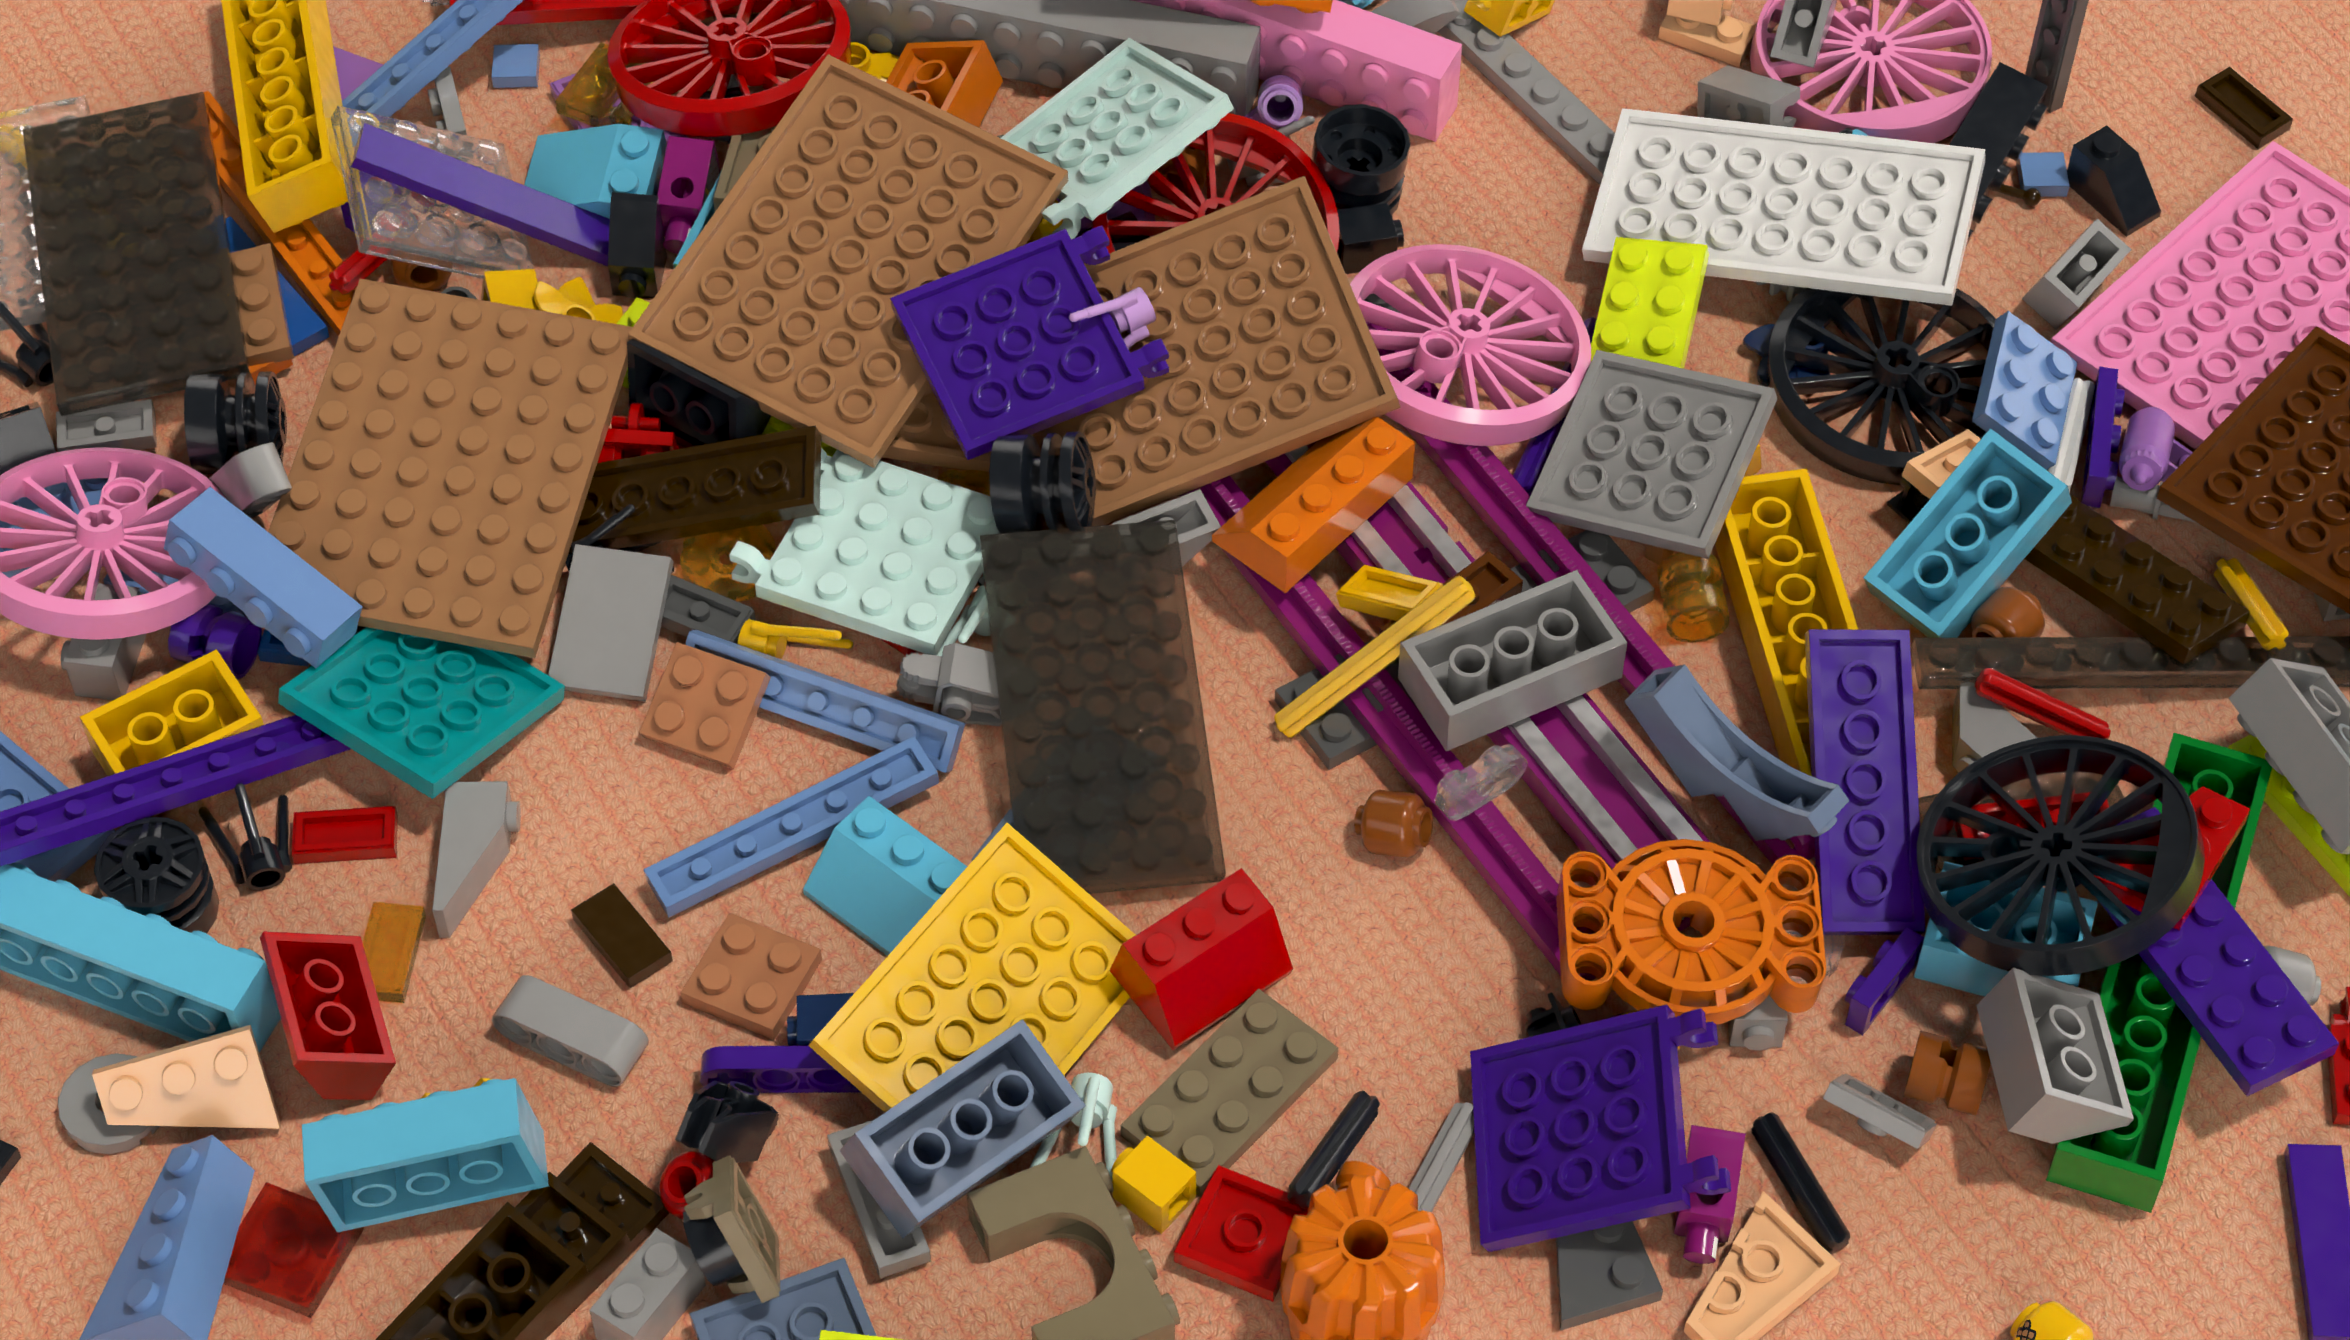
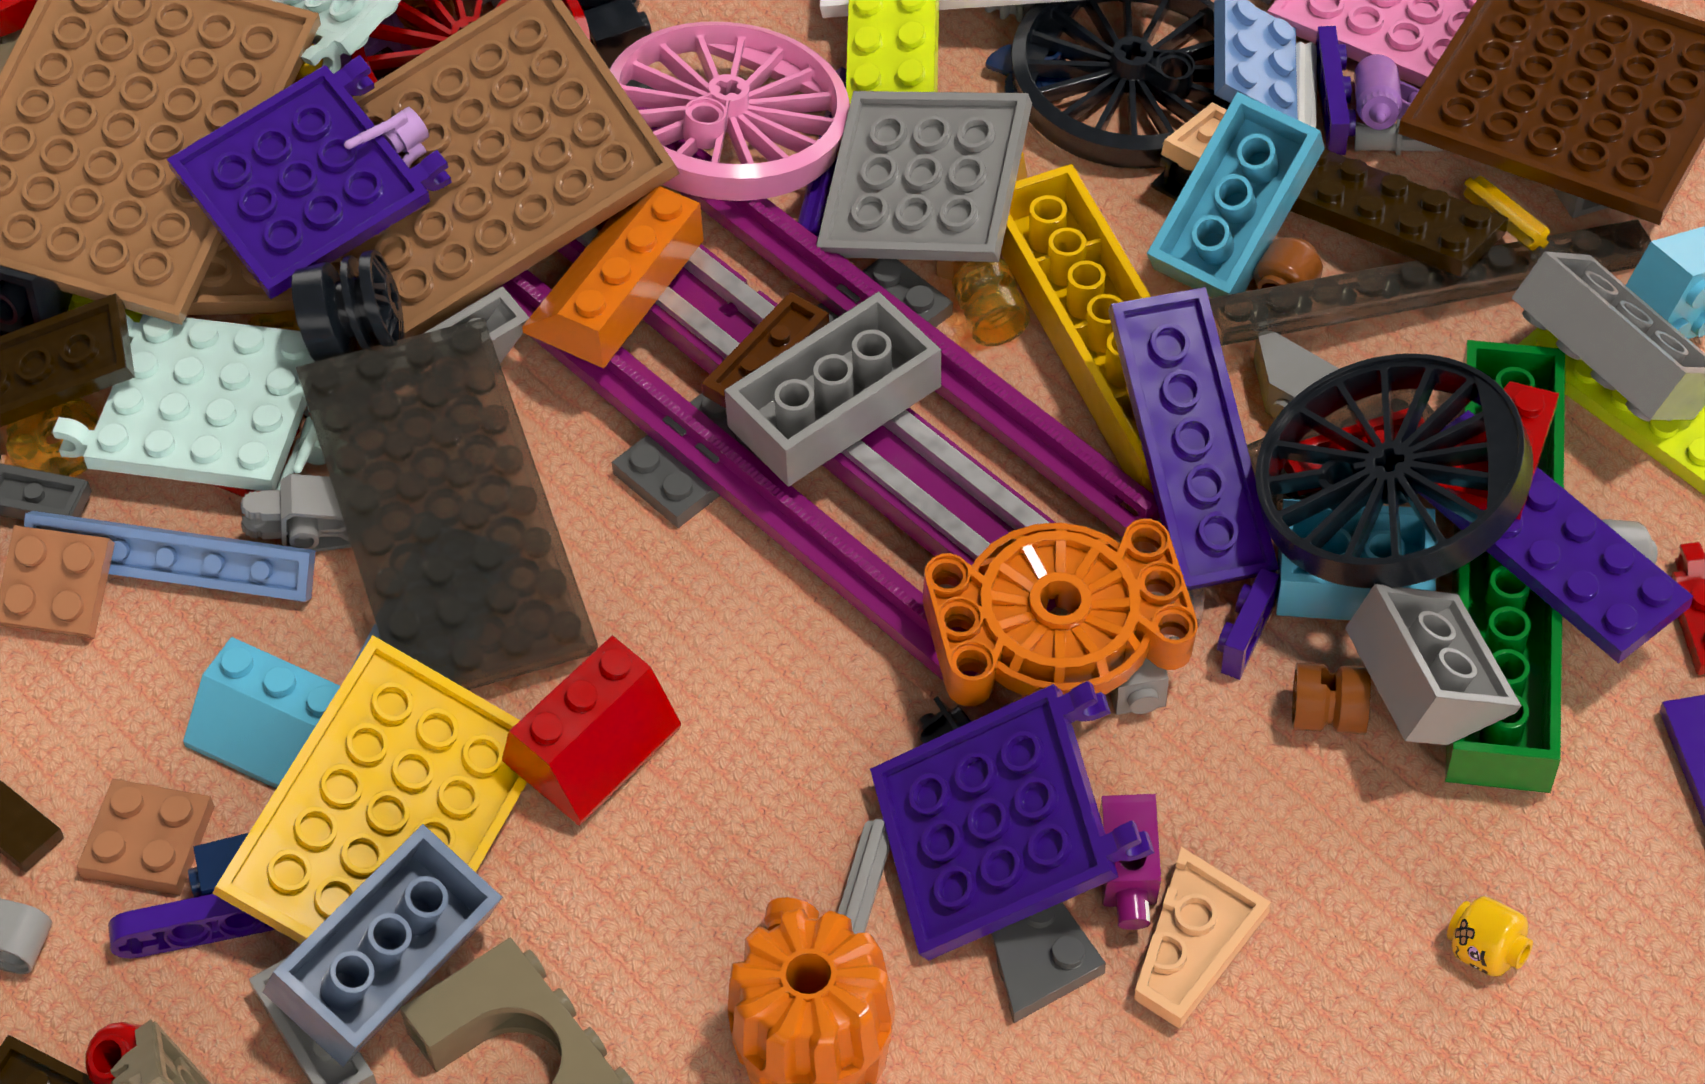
camera: 10 degrees left, 0 degrees up
(727, 1122) = (143, 986): black hinge -> none
(773, 638) = (112, 504): yellow plant -> none
(787, 827) = (155, 684): medium blue plate -> none
(1096, 1095) = (511, 884): light aqua plant -> none
(1153, 1183) = (585, 960): yellow brick -> none
(1232, 1087) = (642, 856): dark tan plate -> none
(1239, 1233) = (680, 991): red plate -> none
(1334, 1148) = (756, 890): black axle -> none
(1373, 657) = (700, 410): yellow axle -> none
(1384, 592) = (705, 349): yellow tile -> none
(1394, 823) = (751, 566): dark orange head -> none
(1480, 782) = (827, 509): clear plate -> none
(1721, 760) = (1053, 443): sand blue arch -> none
(1800, 1182) = (1214, 831): black axle -> none
(1879, 1112) = (1274, 749): light grey plate -> none
(2038, 706) = (1331, 339): red axle -> none

